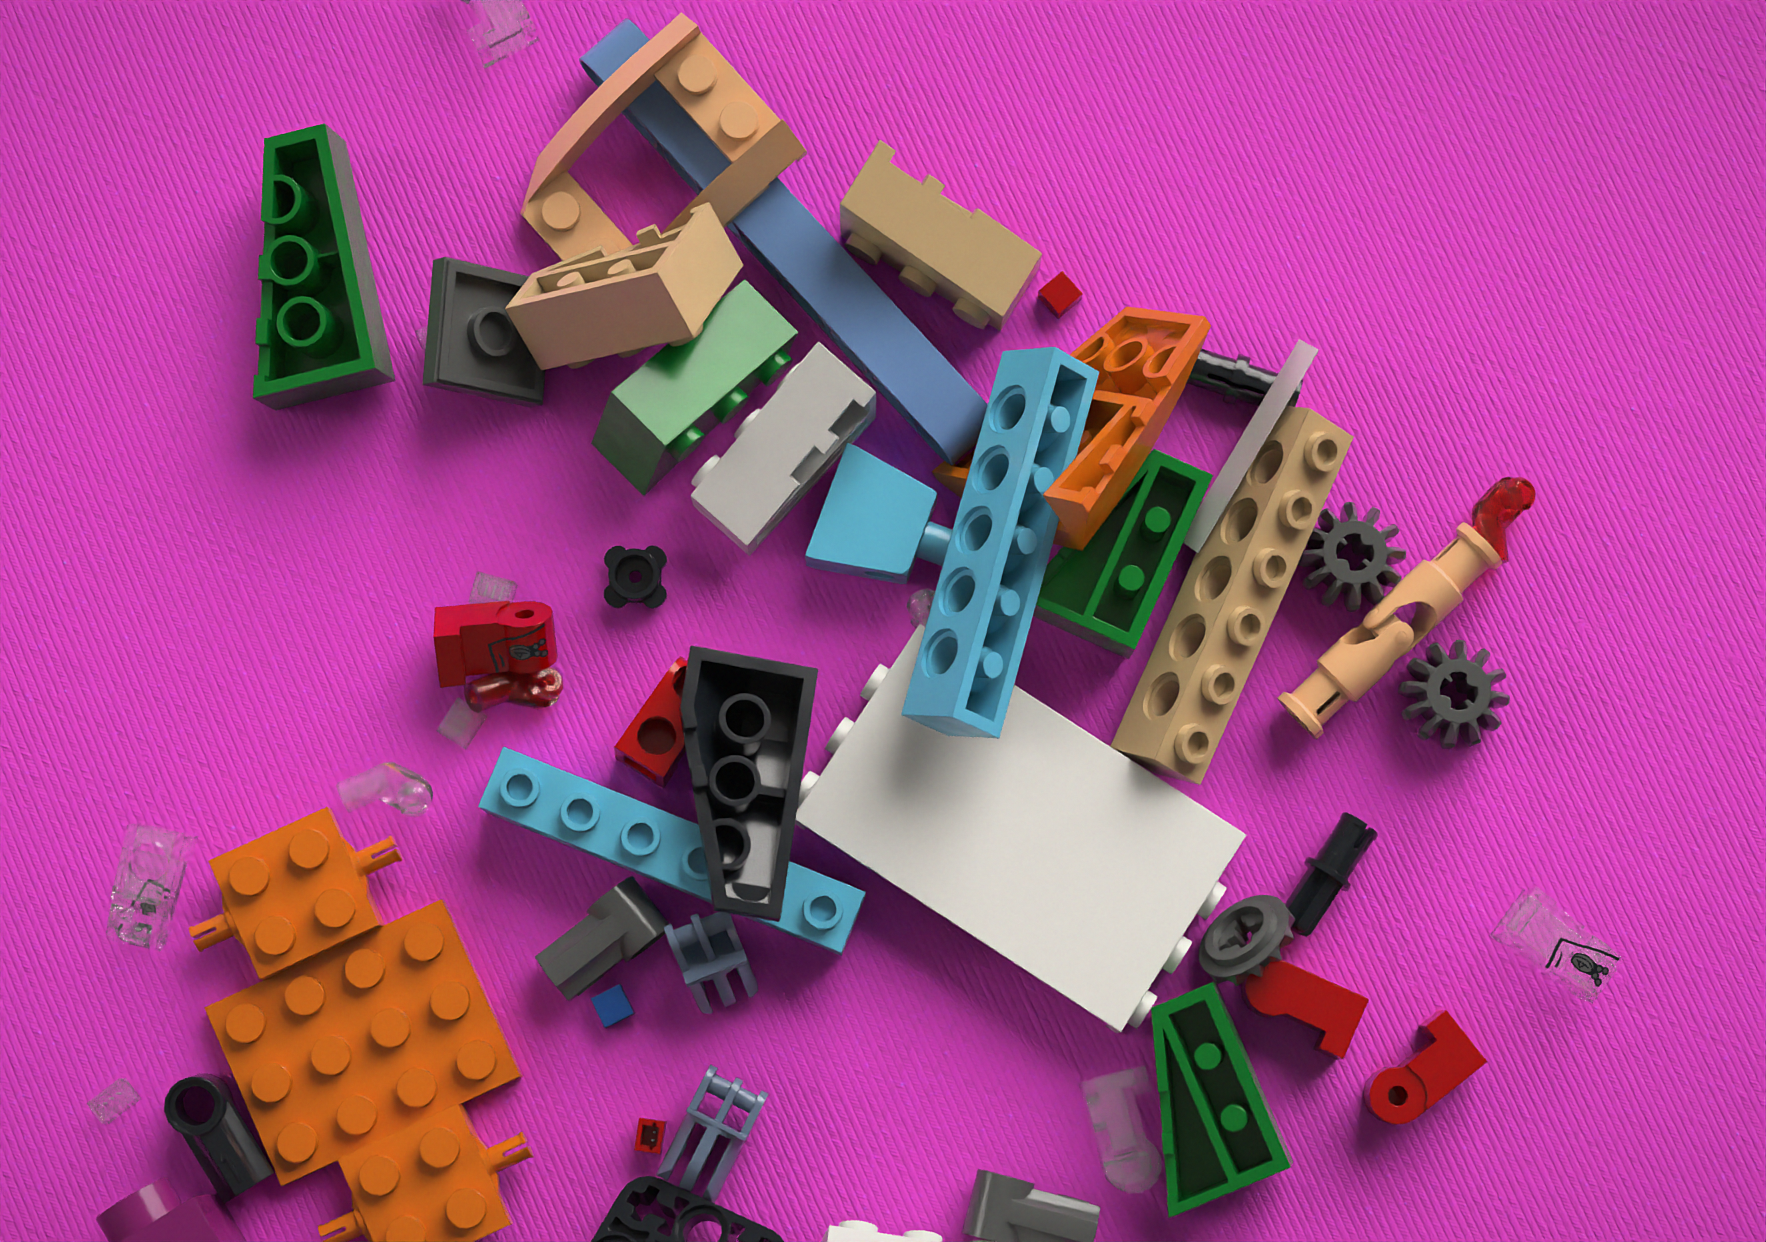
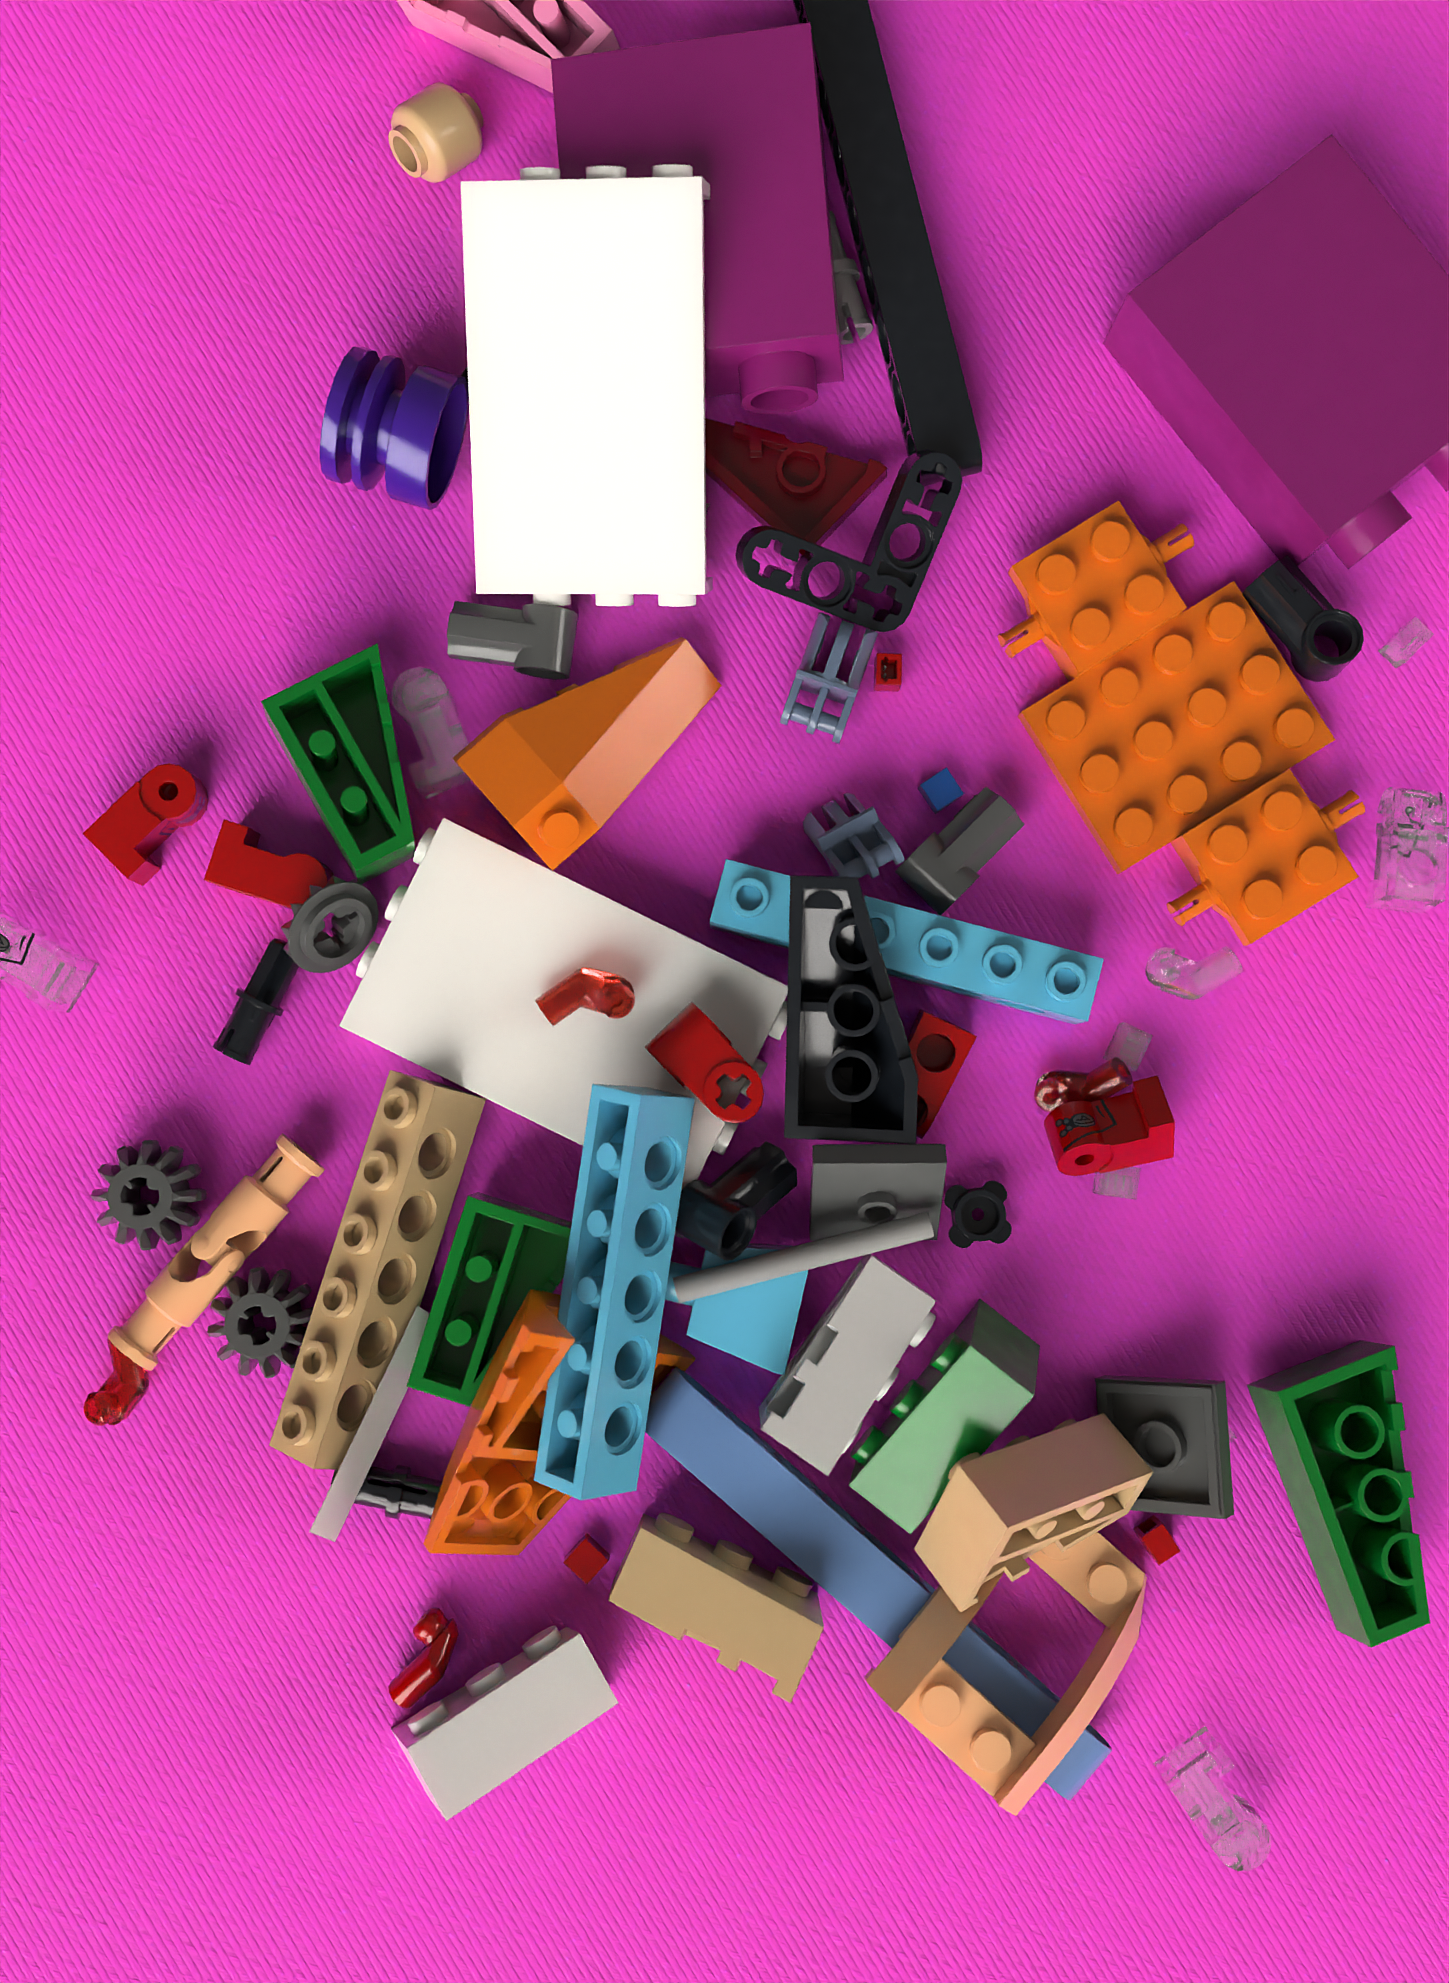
camera: 175 degrees right, 5 degrees up
(506, 245) = (1156, 1539): none -> red piece
(734, 607) = (874, 1185): none -> dark grey plate
(814, 551) = (803, 1257): none -> light grey bar
(884, 605) = (727, 1210): none -> black piece
(892, 755) = (702, 1056): none -> red piece
(976, 1079) = (582, 753): none -> orange wedge
(993, 837) = (590, 990): none -> clear red arm
(1155, 156) = (504, 1719): none -> white wedge
(1219, 216) = (430, 1665): none -> red arm

